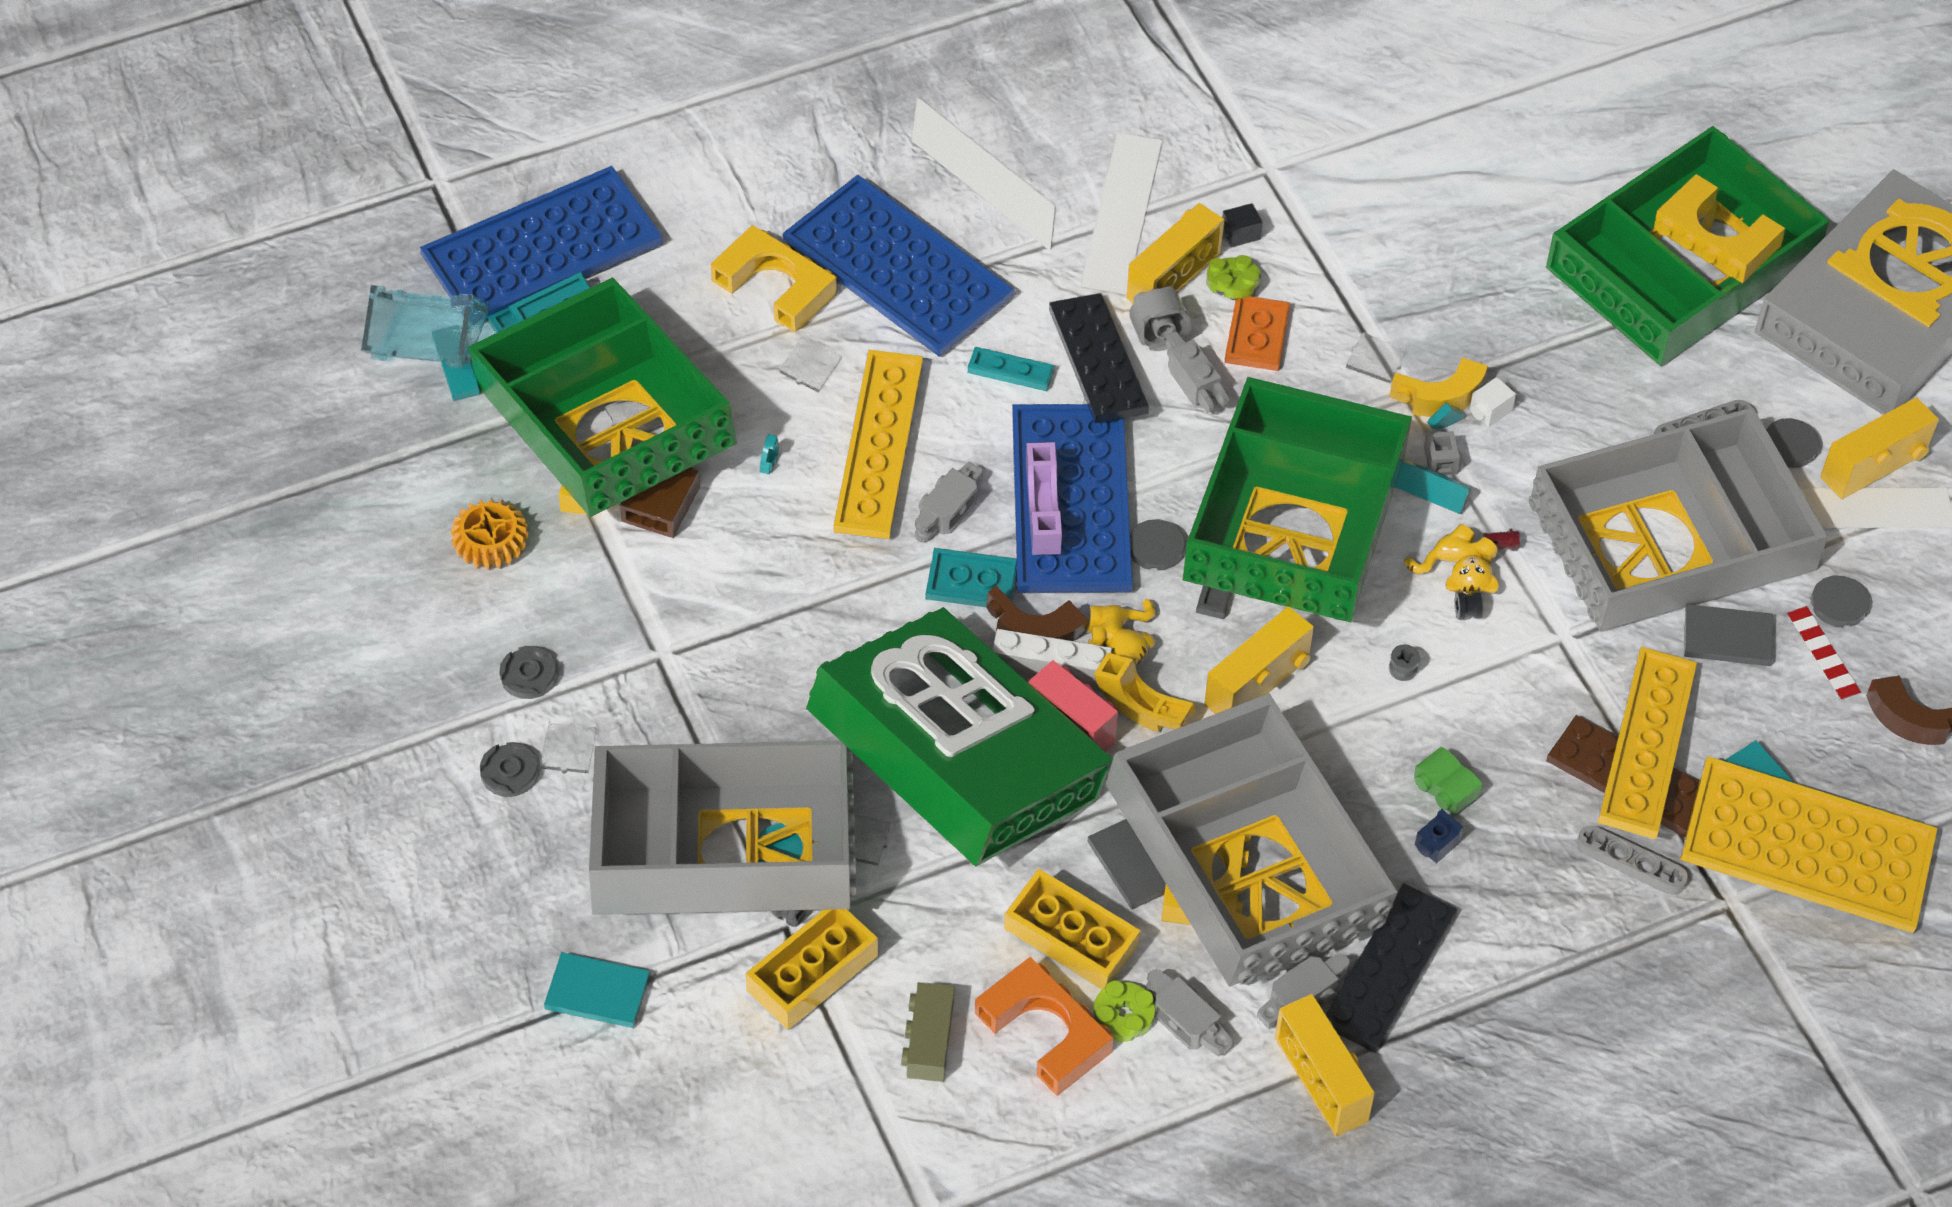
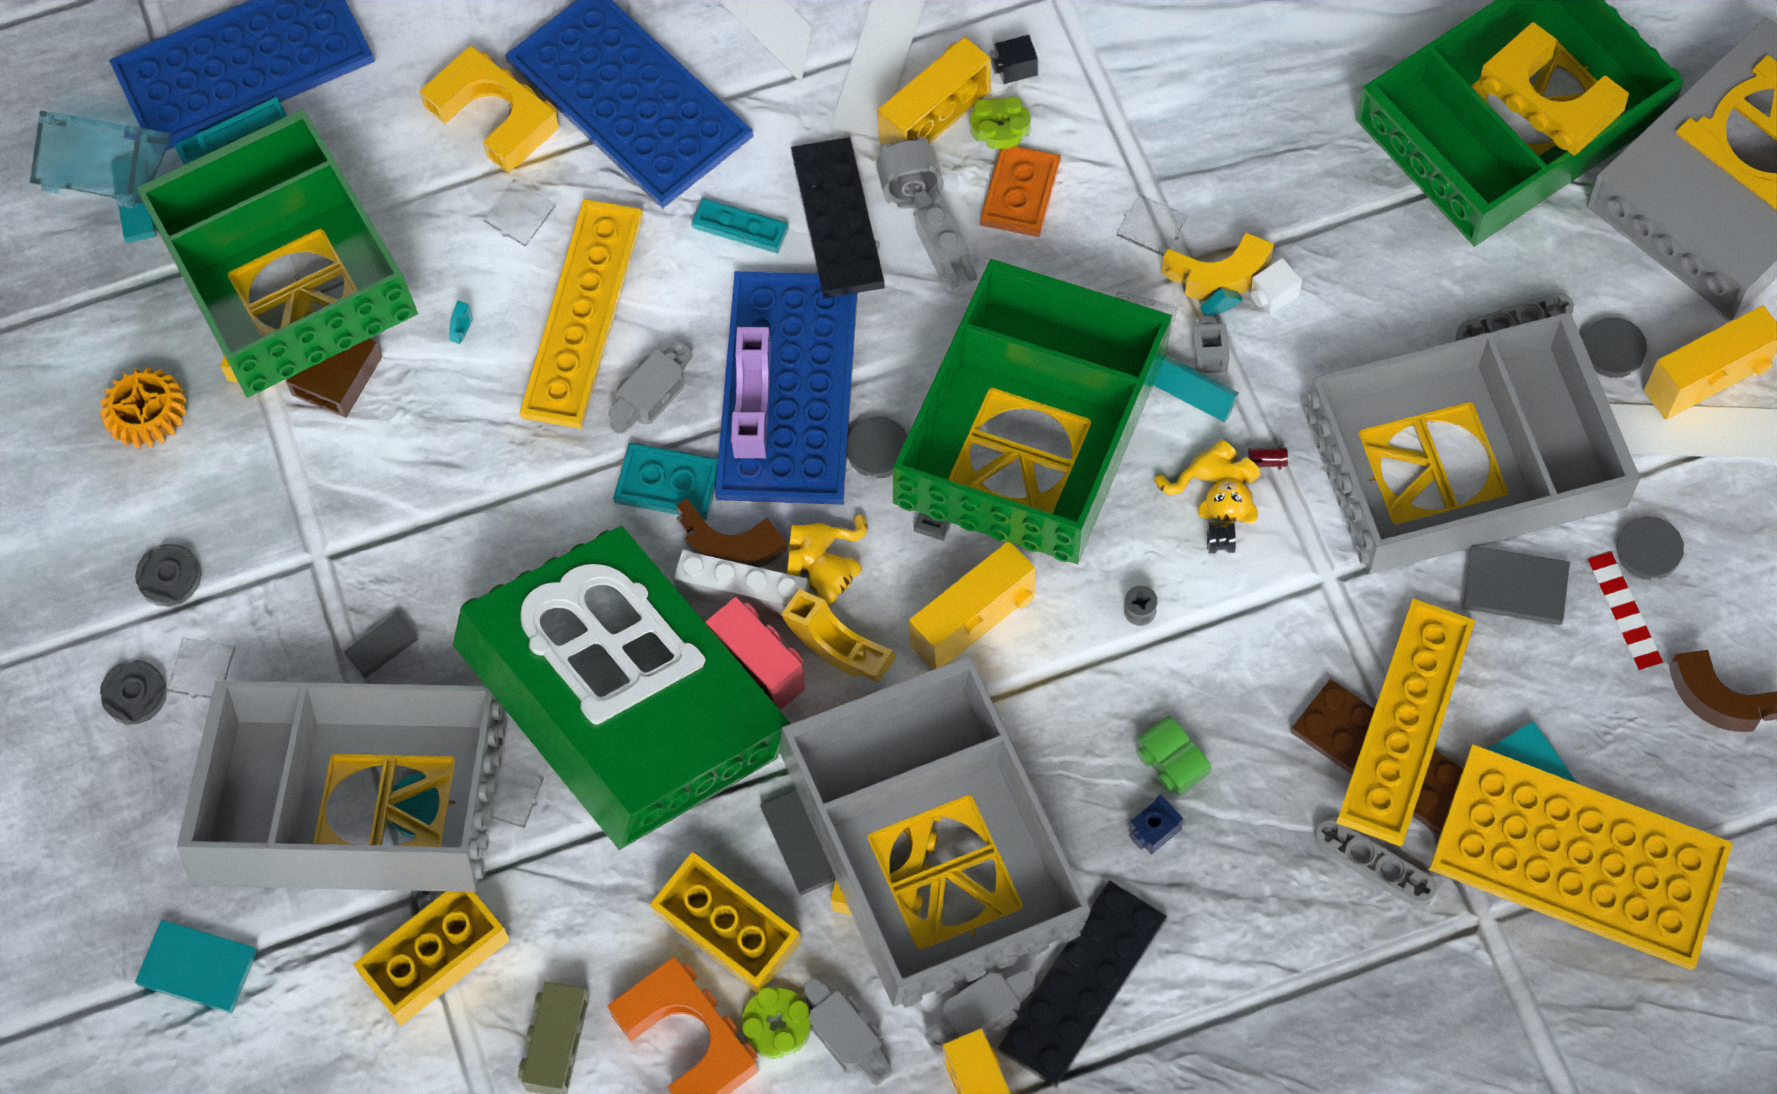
camera: 10 degrees right, 10 degrees up
(730, 721) = (380, 645): none -> dark grey tile

